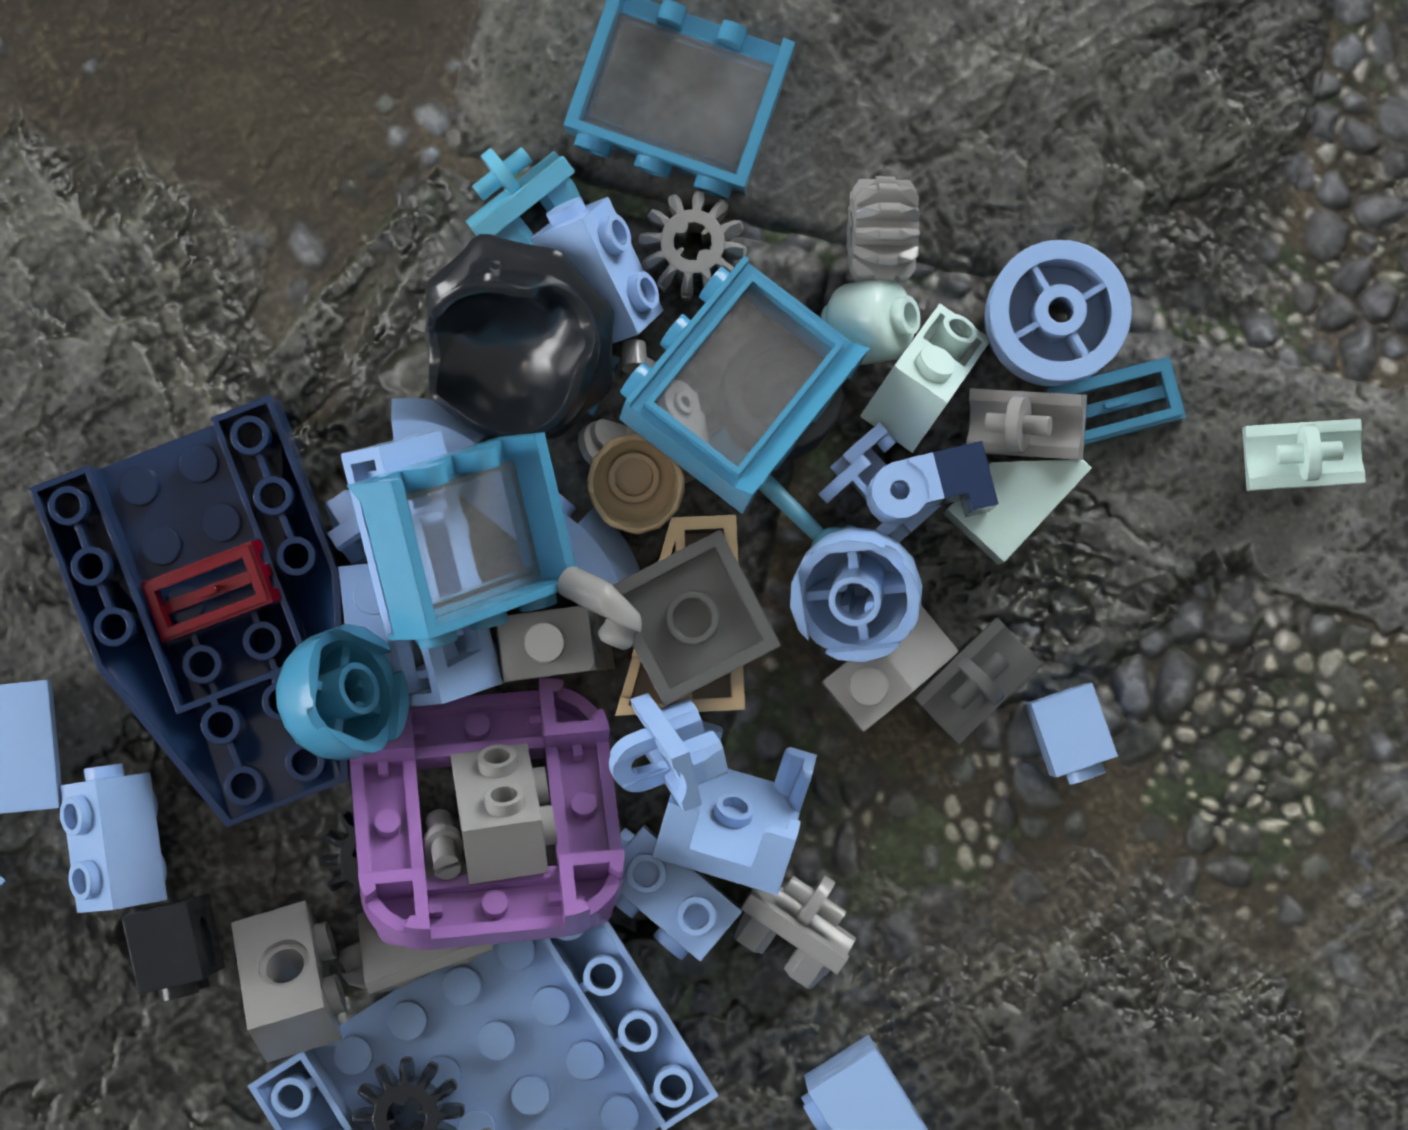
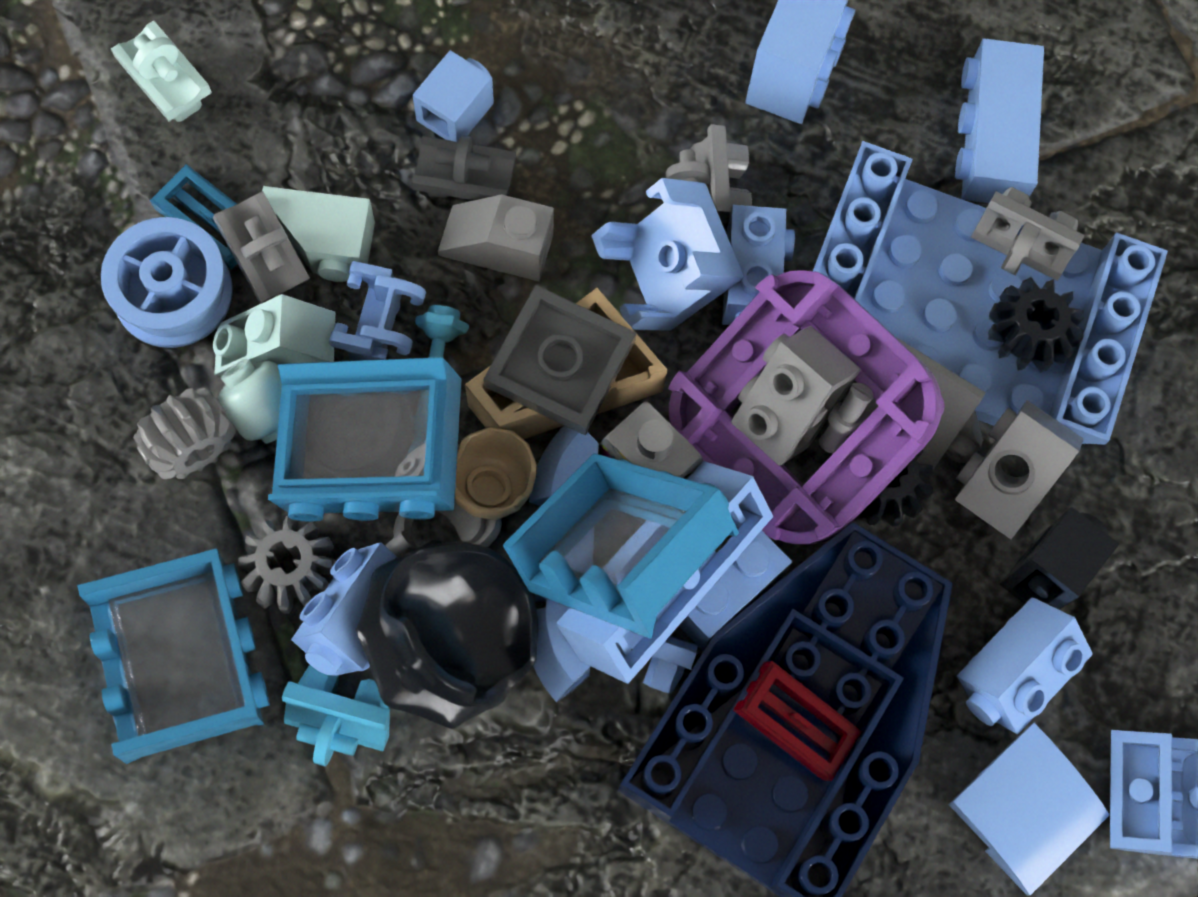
camera: 135 degrees left, 15 degrees down
(342, 694) = (802, 552): dark azure cylinder -> none
(604, 599) = (593, 418): light grey arm -> none
(676, 748) = (670, 304): light blue hips -> none
(856, 594) = (461, 265): light blue cylinder -> none
(932, 481) = (356, 277): leg -> none

